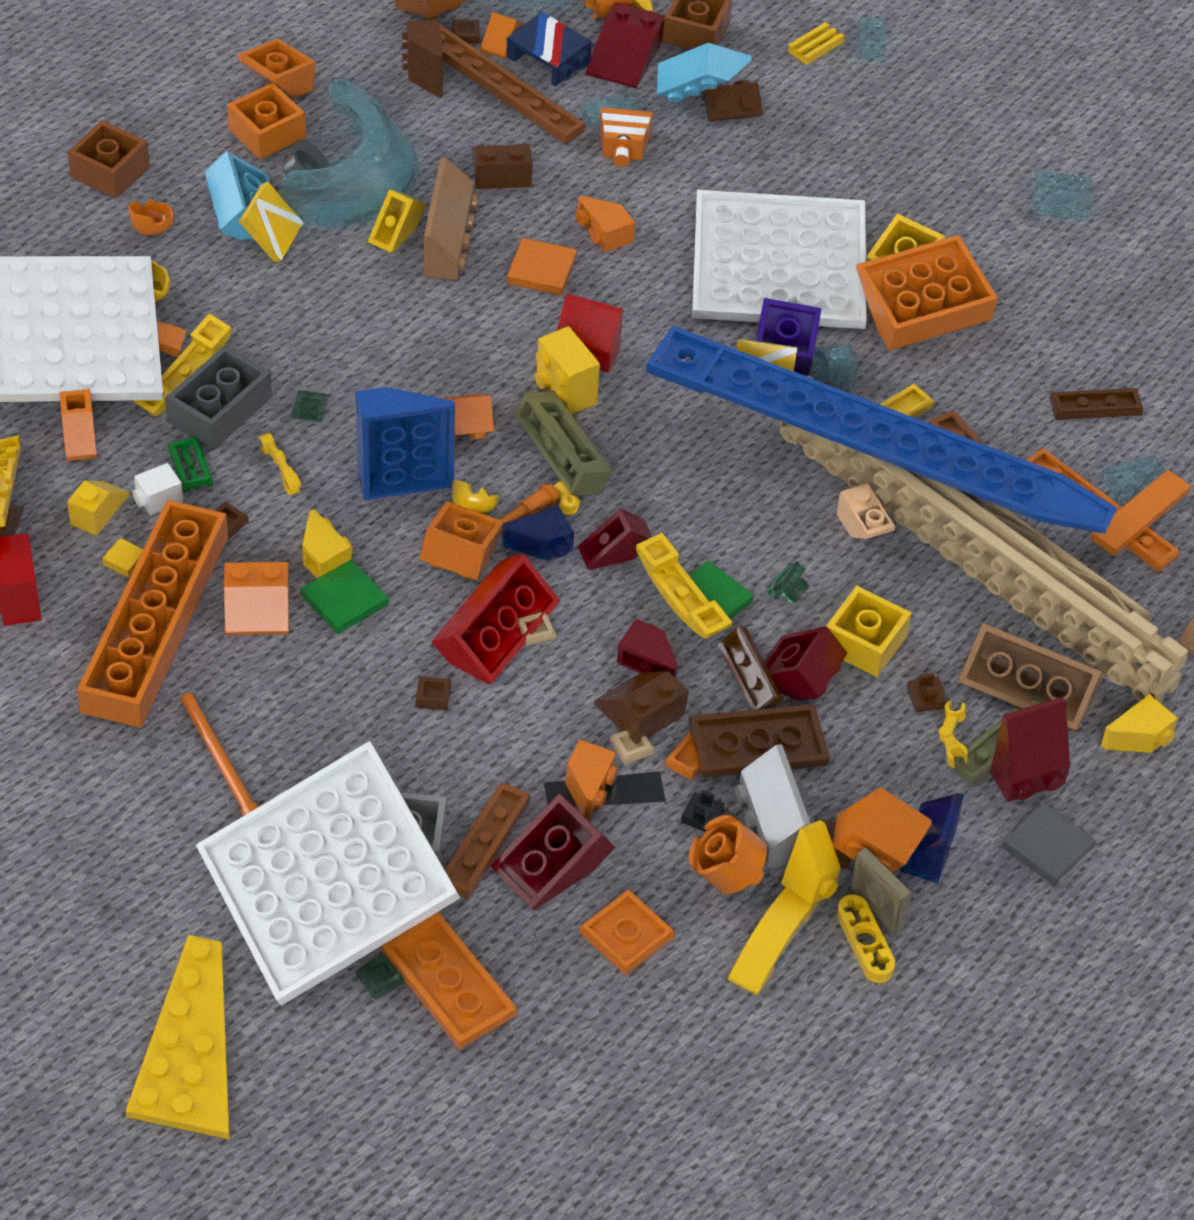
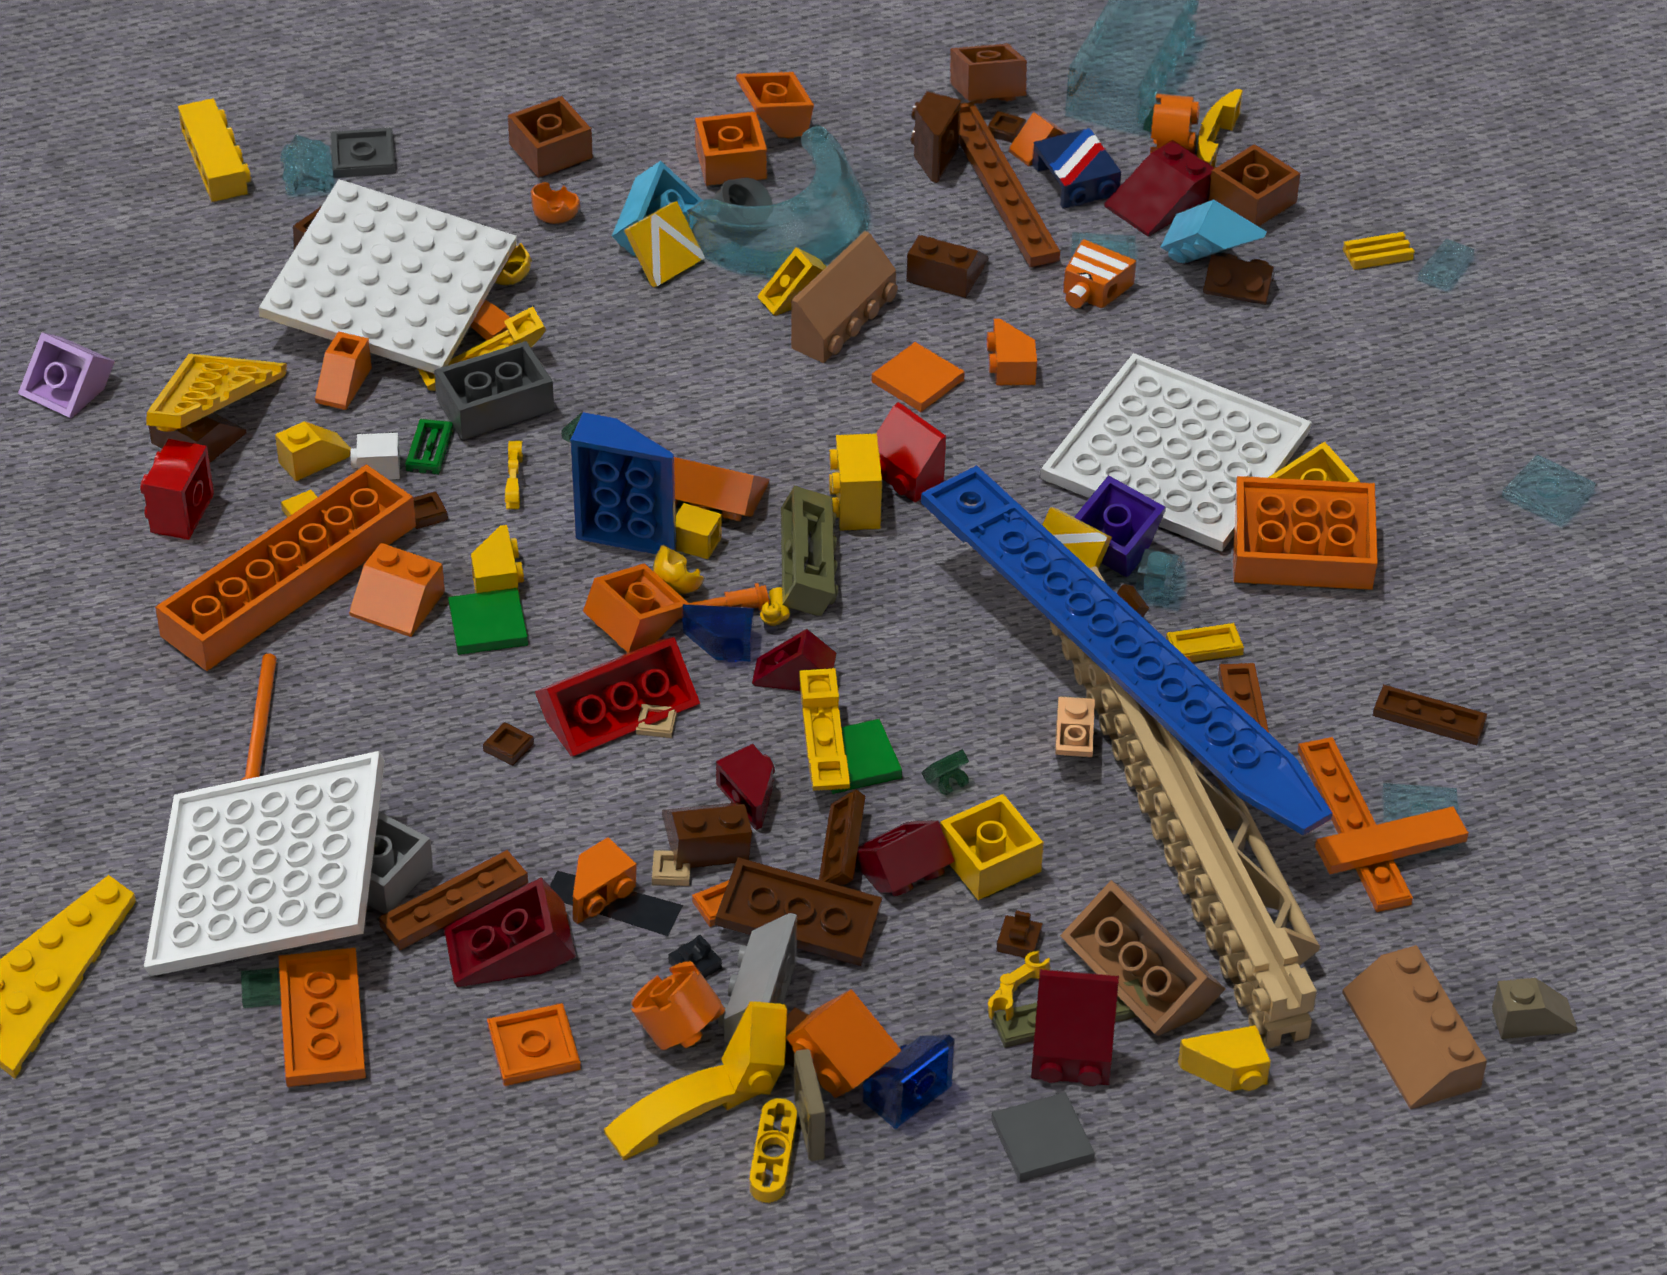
camera: 30 degrees right, 5 degrees down
(467, 458) = (697, 530): none -> yellow brick

